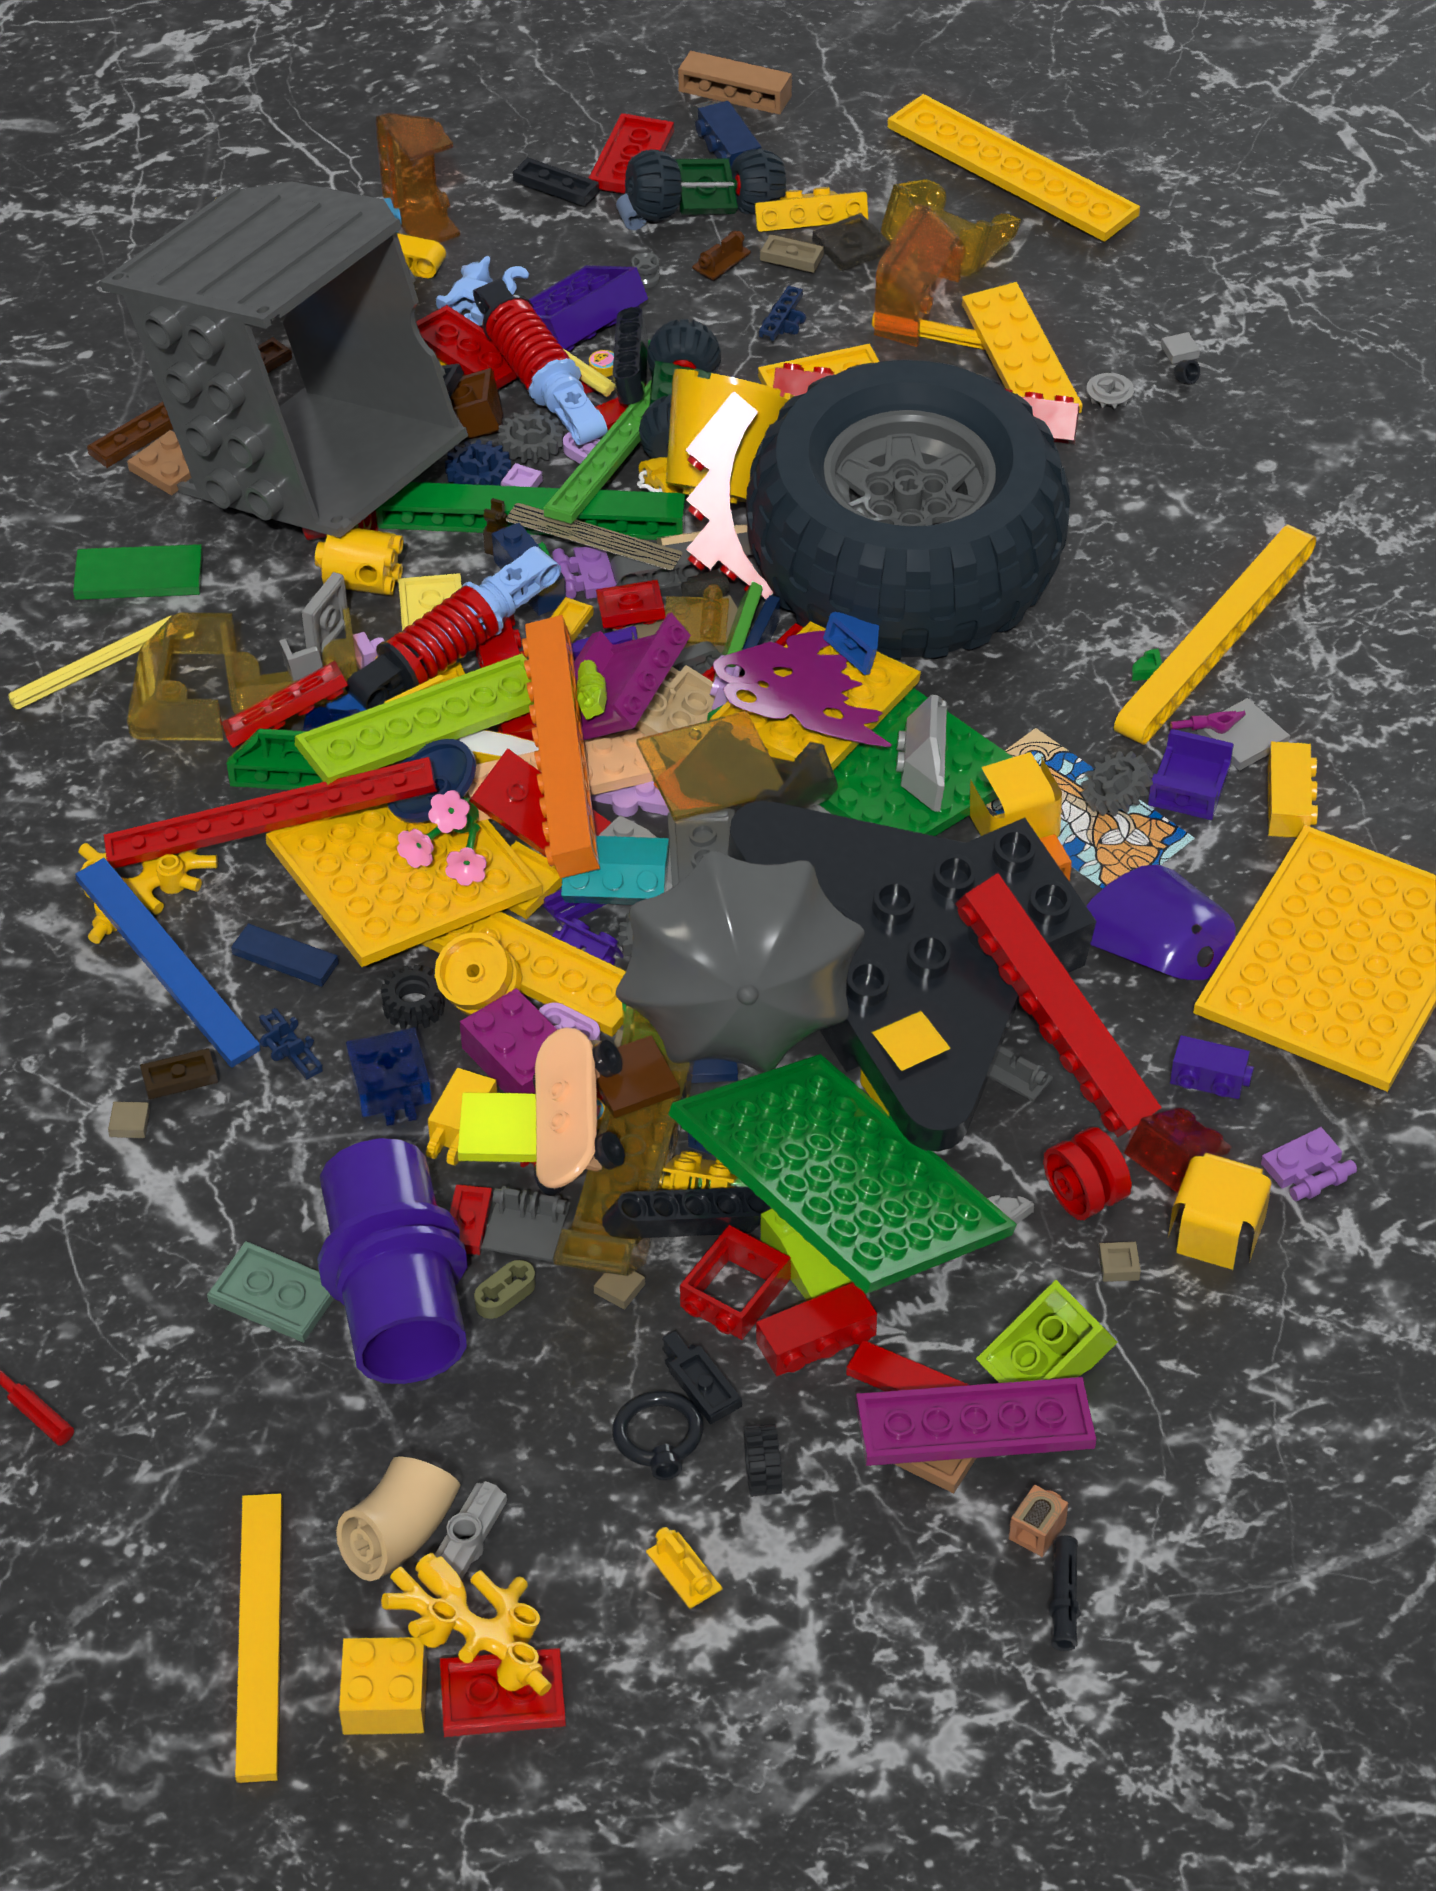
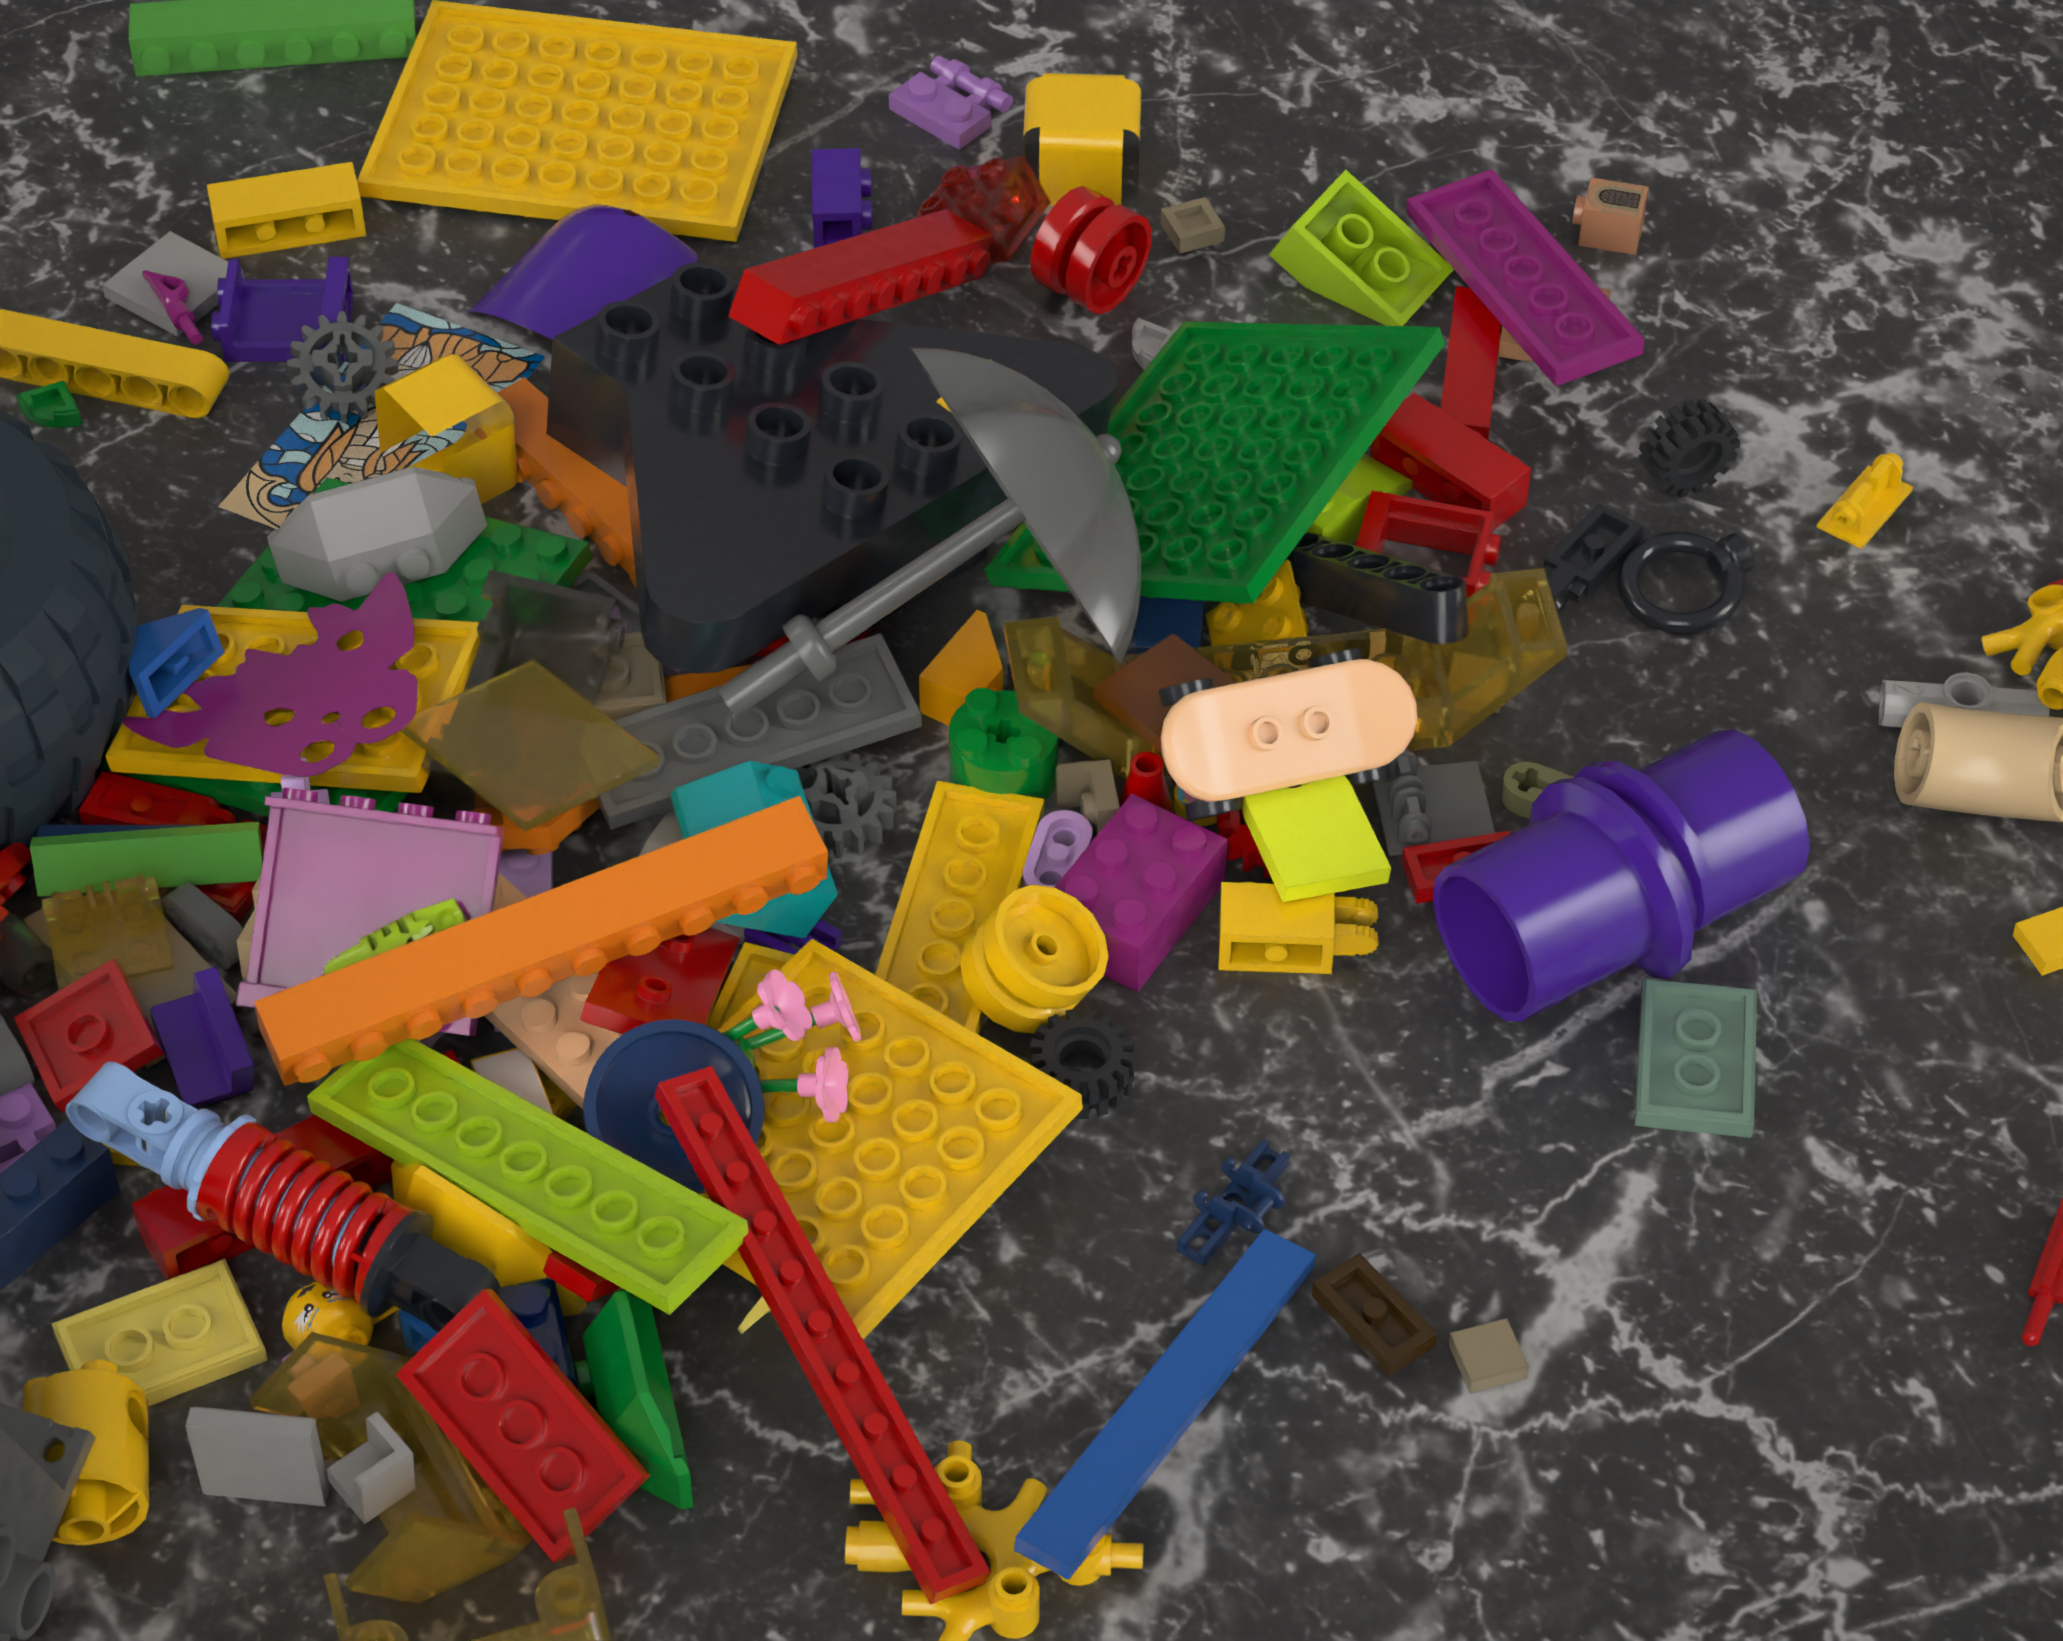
camera: 110 degrees left, 0 degrees up
(285, 955) = (1058, 1272): dark blue tile -> none
(389, 1074) = (1260, 1029): clear blue hinge -> none
(578, 935) = (870, 900): dark purple hinge -> none
(1065, 1607) = (1709, 179): black pin -> none

